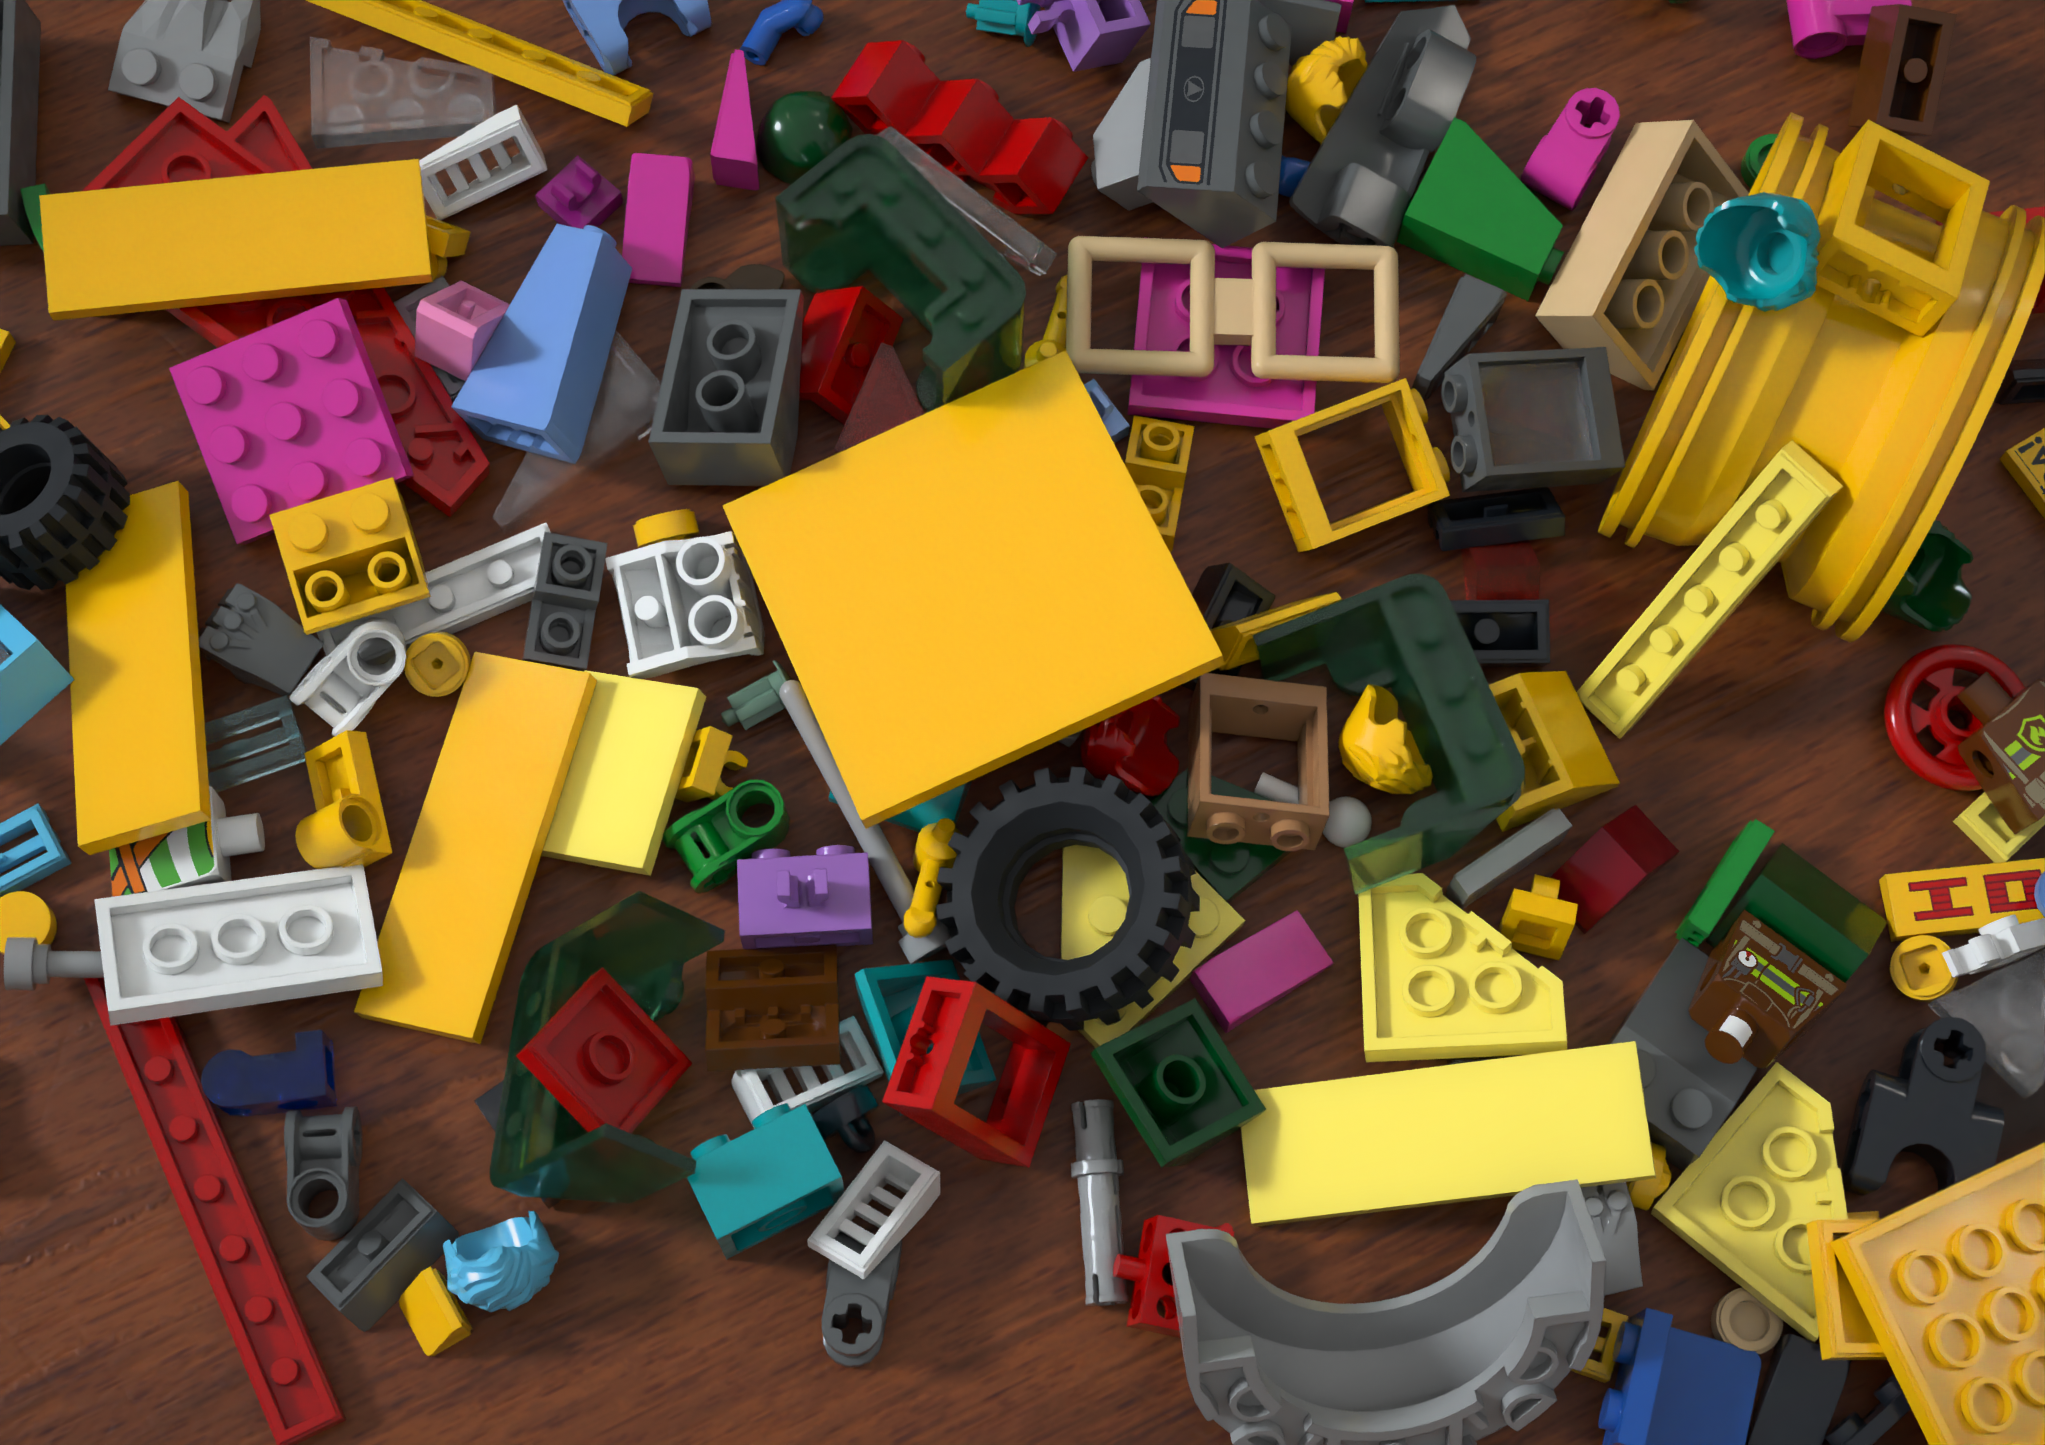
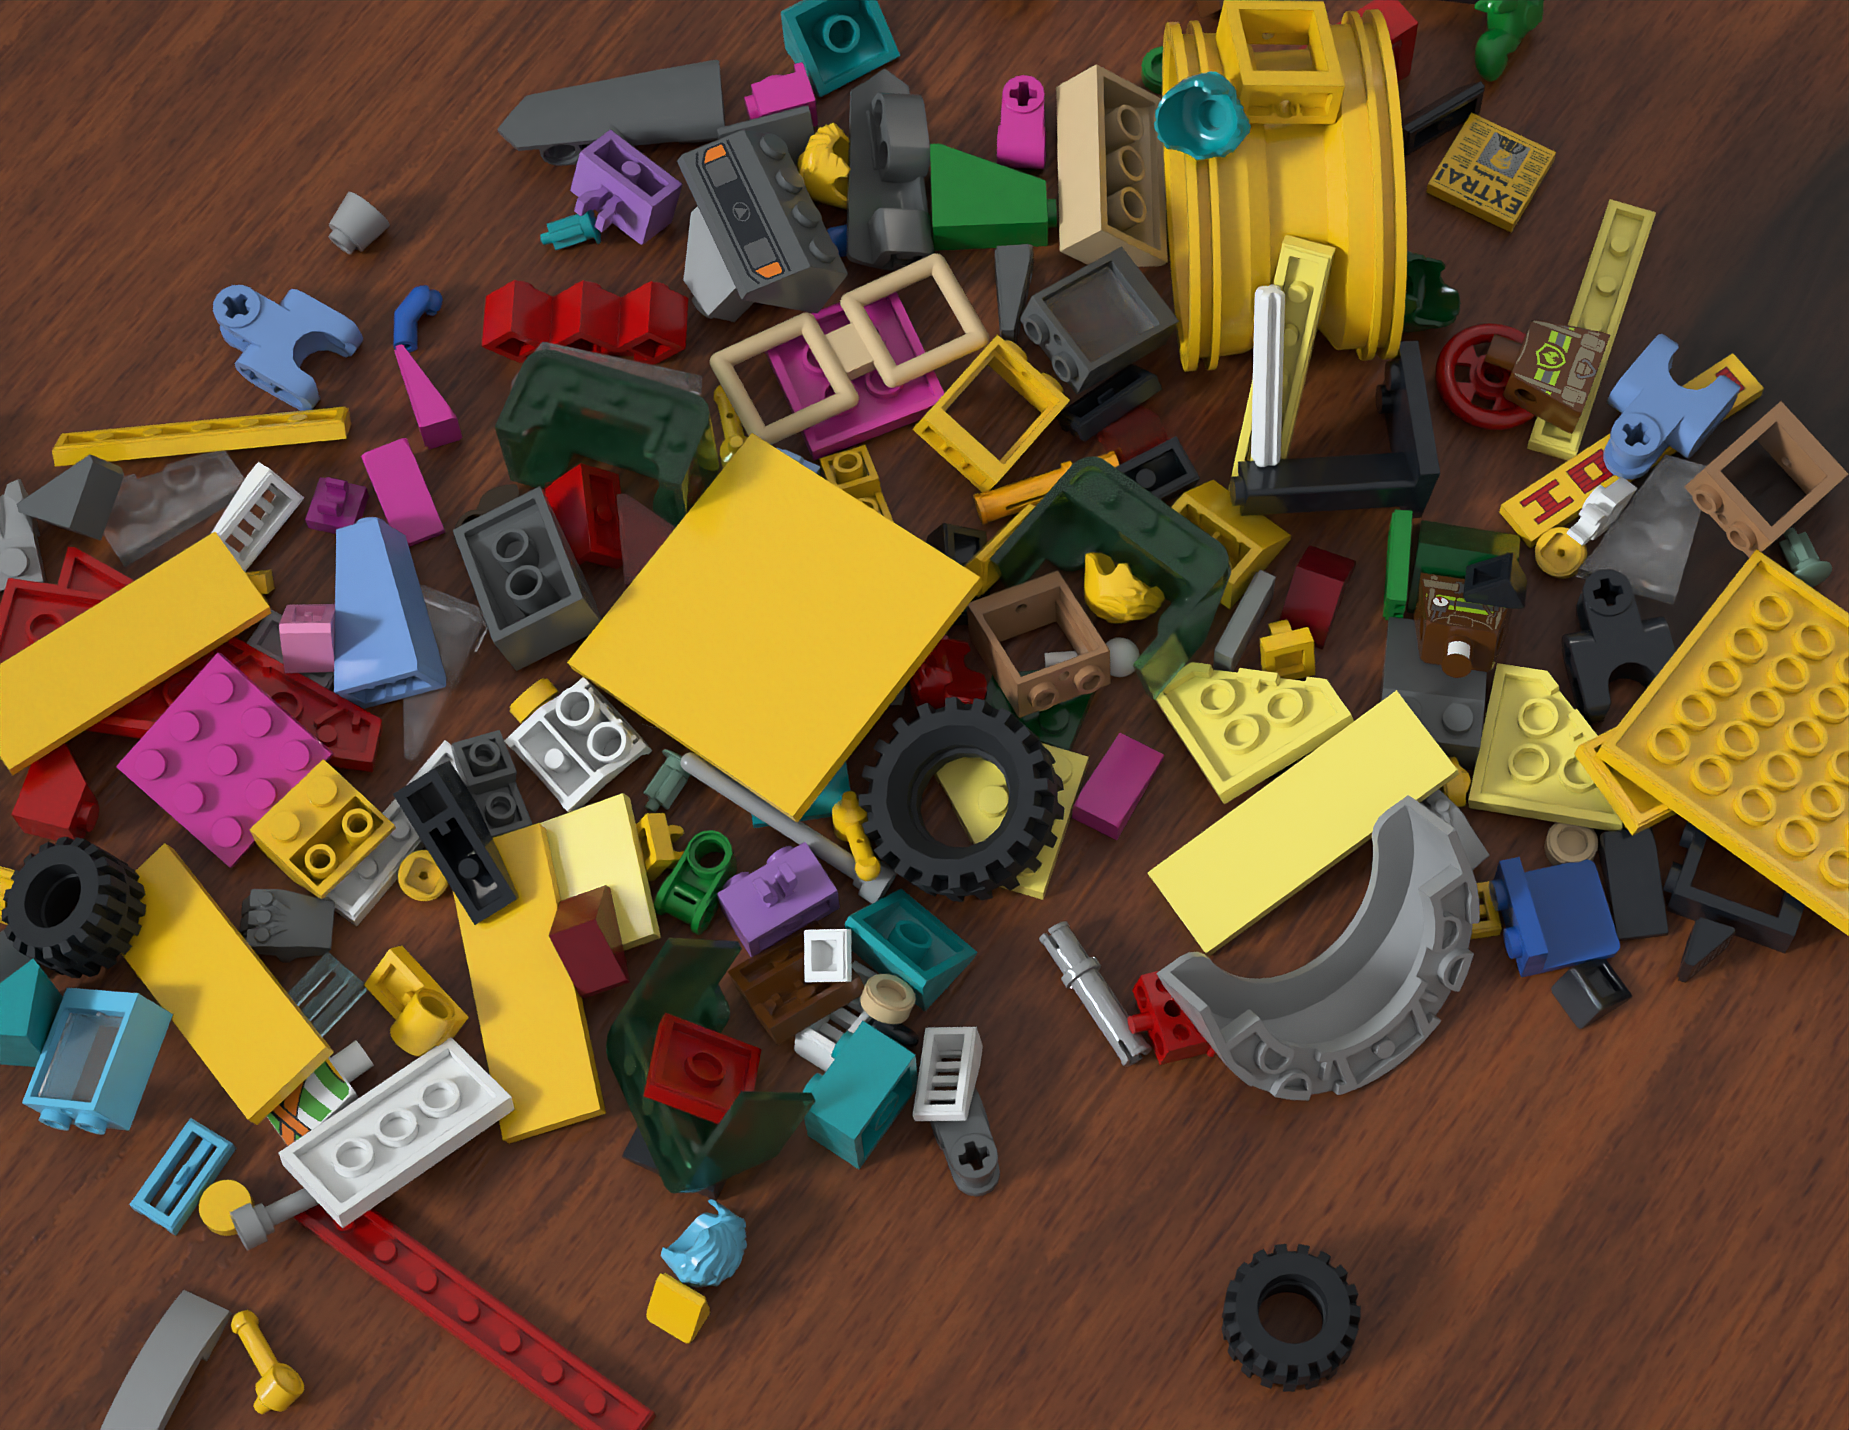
camera: 20 degrees left, 5 degrees down
(100, 367) = (56, 798): none -> red slope
(273, 1082) = (473, 1216): clear blue leg -> none
(301, 46) = (77, 497): none -> dark grey slope
(320, 1157) = (541, 1248): dark grey piece -> none
(344, 685) = (370, 915): white piece -> none
(382, 1255) = (618, 1292): dark grey slope -> none
(488, 645) = (458, 840): none -> black slope
(567, 838) = (590, 942): none -> dark red slope
(800, 133) = (475, 383): dark green hair -> none
(817, 1000) = (827, 955): none -> white slope
(855, 1086) = (887, 998): none -> tan tile
(927, 1084) = (940, 967): red window -> none
(1178, 1084) = (1106, 883): dark green slope -> none
(1350, 577) = (1016, 496): none -> light orange pin
(1686, 589) = (1267, 375): none -> white axle
(1729, 762) = (1357, 481): none -> black piece
(1825, 970) = (1496, 582): none -> black slope

